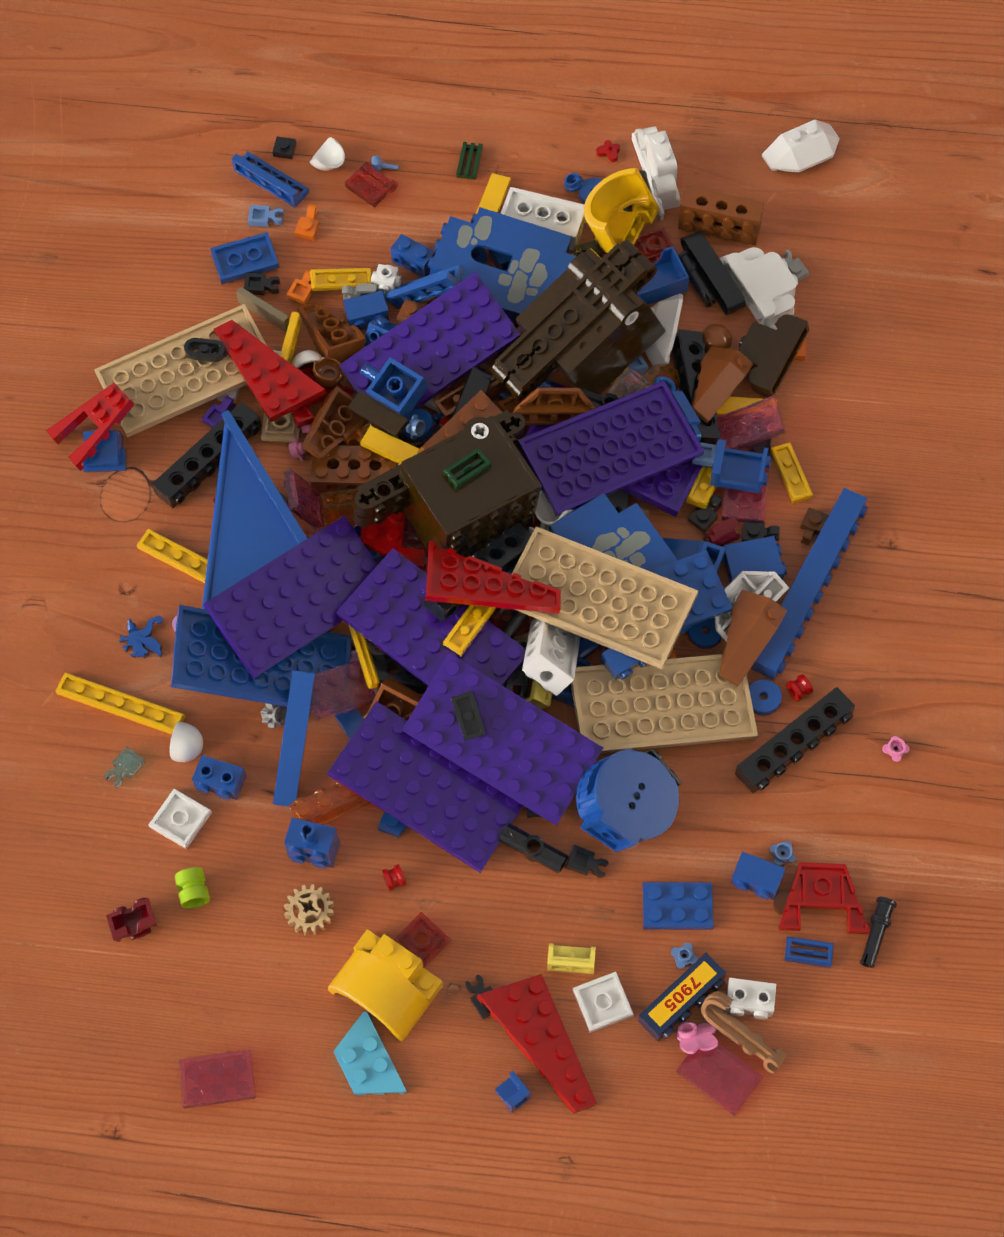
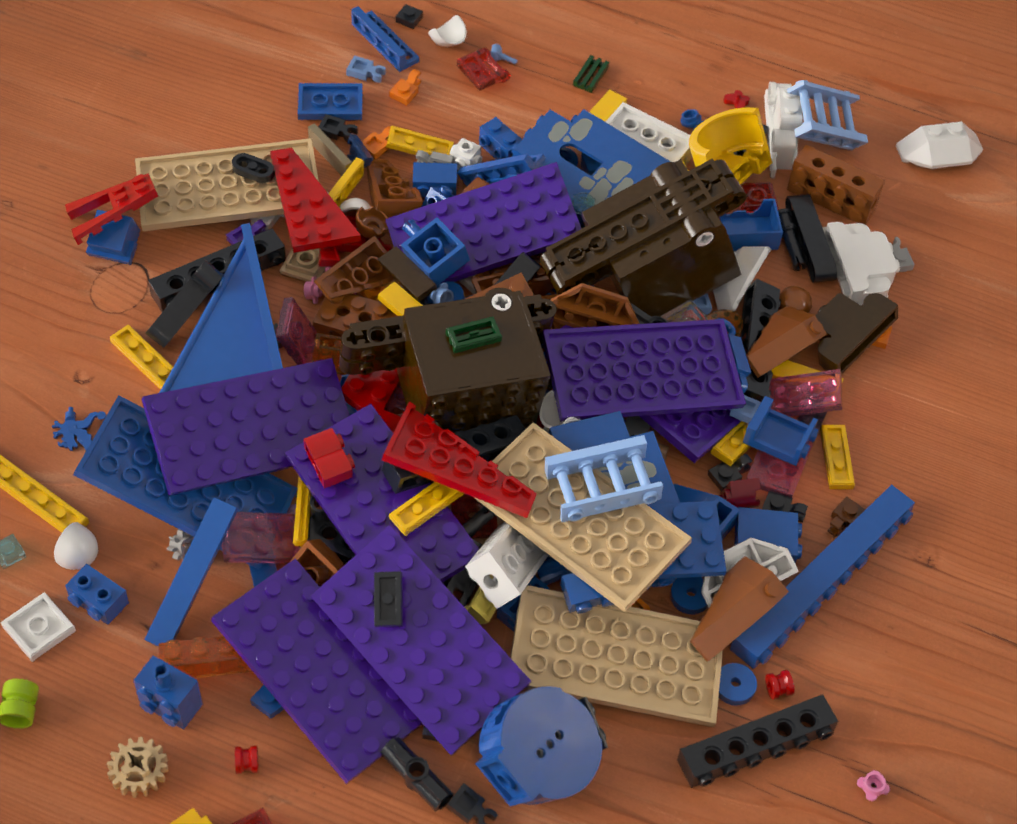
camera: 10 degrees right, 10 degrees down
(192, 497) = (184, 303): none -> black beam
(289, 302) = (358, 150): none -> dark blue tile
(376, 607) = (328, 457): none -> red brick
(508, 301) = (582, 202): none -> clear light blue plate
(609, 540) = (600, 456): none -> light blue fence
(697, 168) = (821, 131): none -> light blue fence

